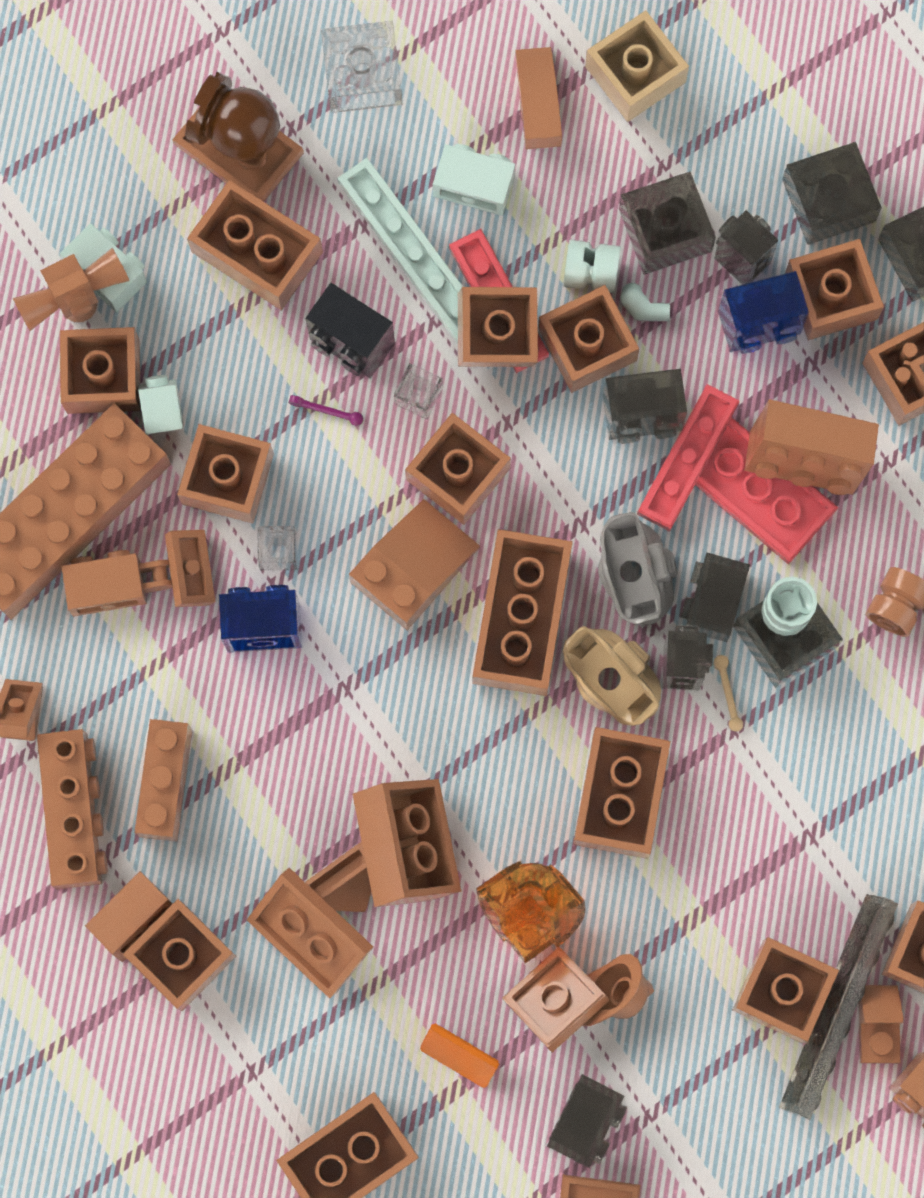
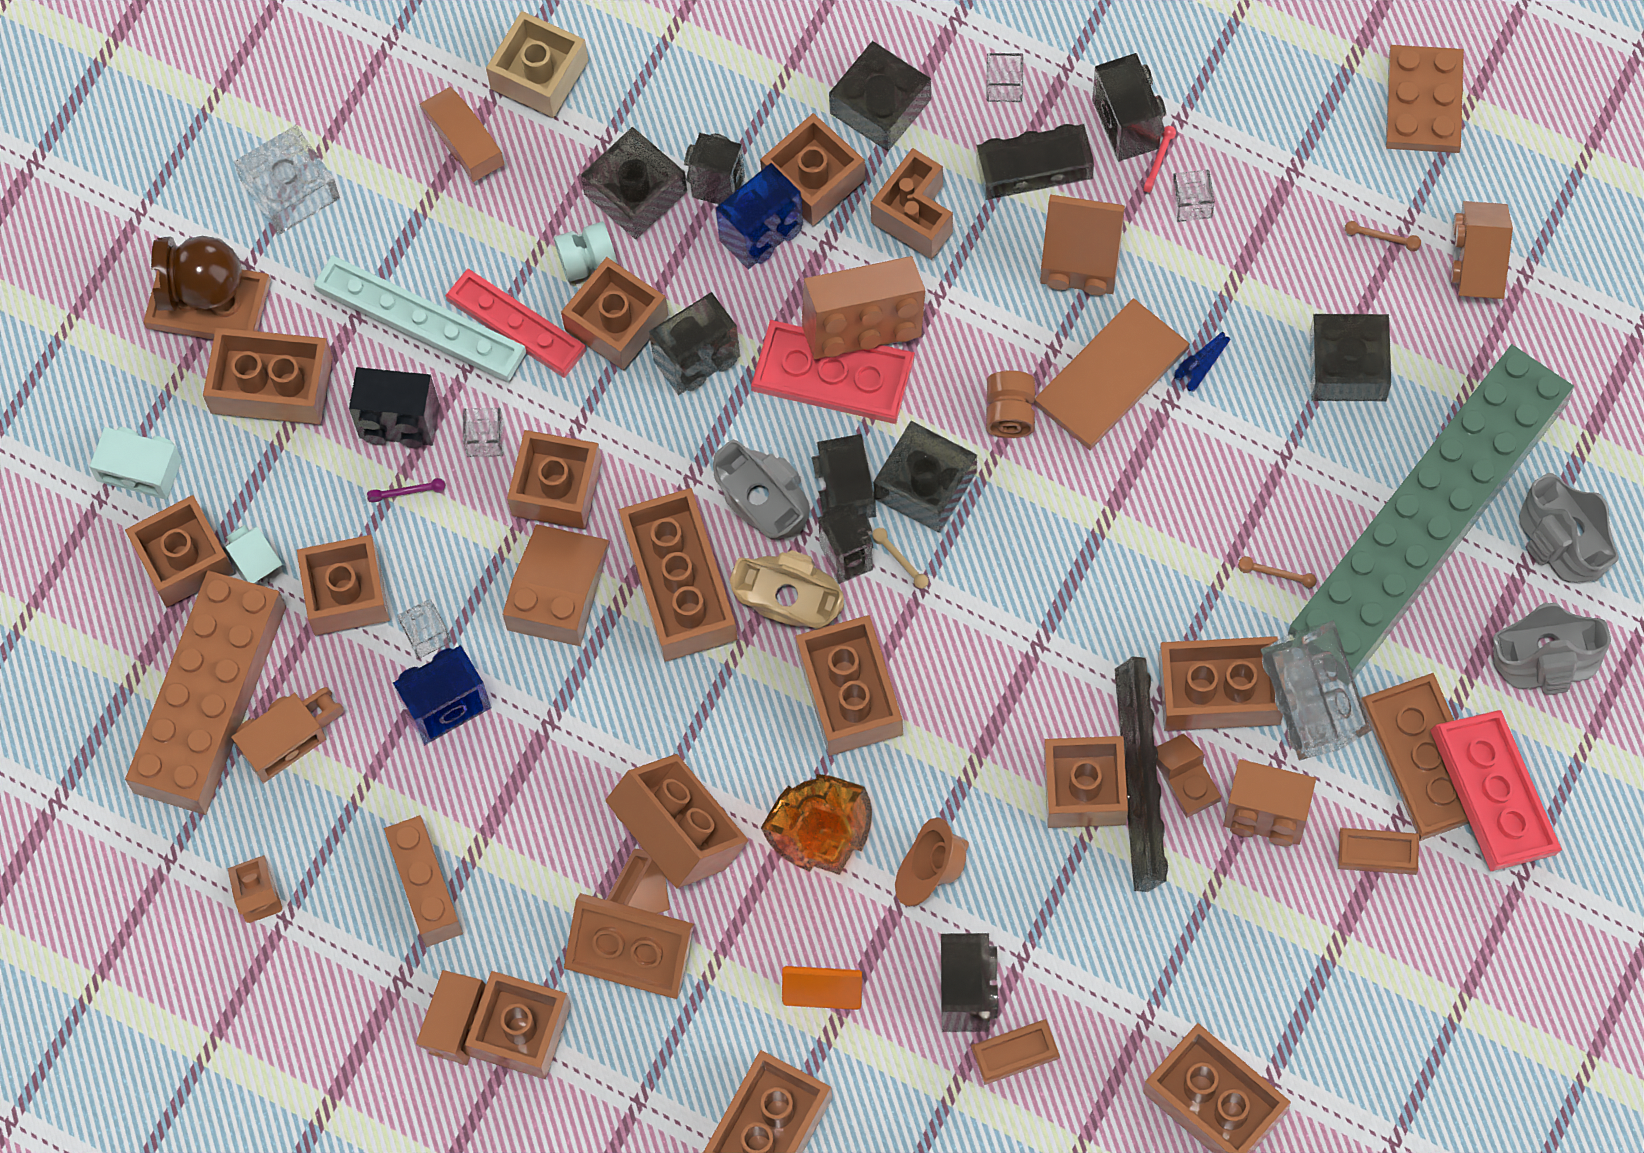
camera: 25 degrees left, 10 degrees down
(70, 809) = (348, 949): nougat brick -> none
(71, 289) = (117, 489): nougat brick -> none
(190, 568) = (351, 685): nougat plate -> none
(474, 179) = (439, 228): light aqua brick -> none
(497, 327) = (527, 338): nougat brick -> none
(555, 999) = (883, 893): tile -> none
(640, 307) = (648, 267): light aqua arm -> none
(688, 457) = (758, 372): coral tile -> none
(789, 606) = (914, 444): light aqua wheel -> none
(831, 193) = (768, 91): clear smoke brick -> none

